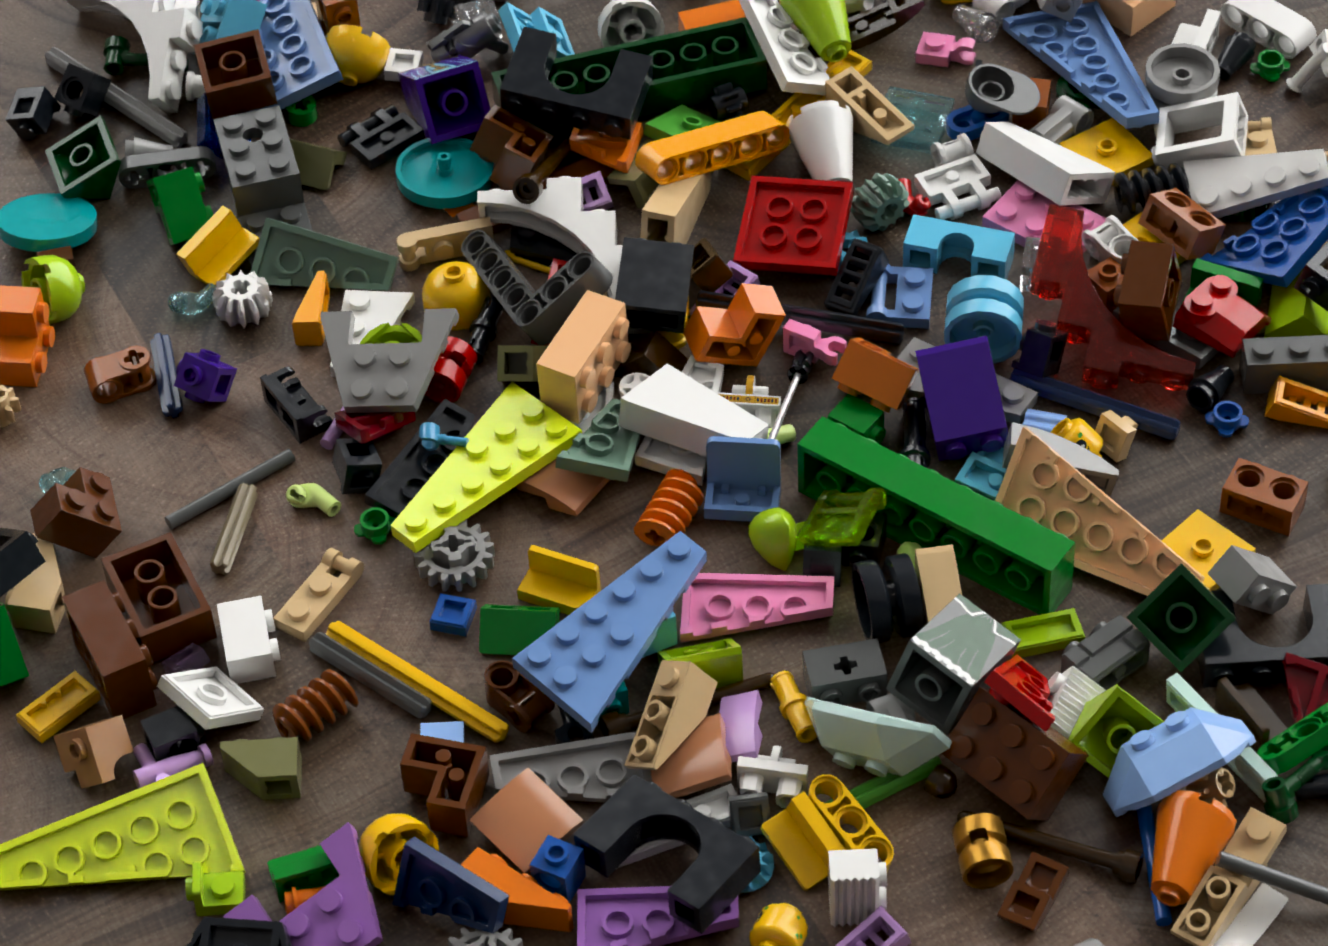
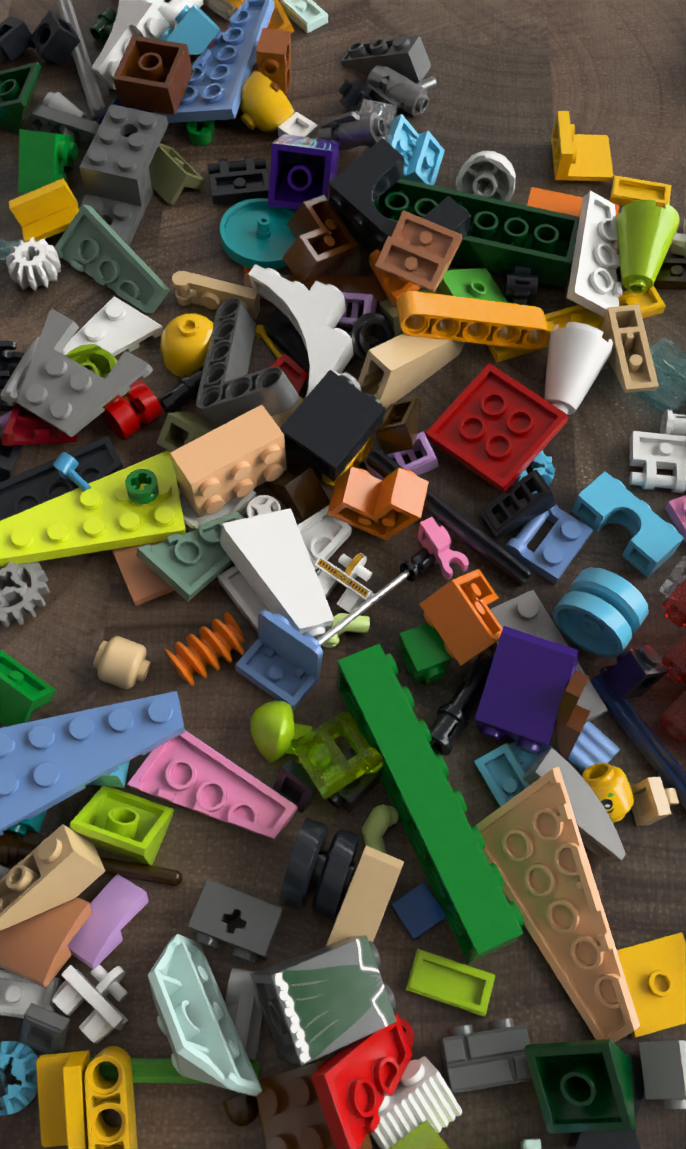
camera: 25 degrees right, 15 degrees up
(307, 321) = (77, 299): light orange slope -> none
(320, 385) = (13, 387): none -> light grey axle
(519, 413) = (134, 482): none -> green bush
(529, 186) = (291, 282): dark brown piece -> none
(558, 580) = (69, 670): yellow panel -> none
(606, 551) = (121, 662): none -> tan head
(619, 198) = (371, 324): none -> black gear
(628, 107) = (419, 251): none -> nougat slope
(793, 706) = (172, 918): yellow pin -> none
(879, 202) = (585, 442): sand green gear -> none
(916, 204) = (612, 450): red arm -> none
(987, 597) = (418, 911): none -> blue tile
(1014, 401) = (571, 716): none -> reddish brown slope

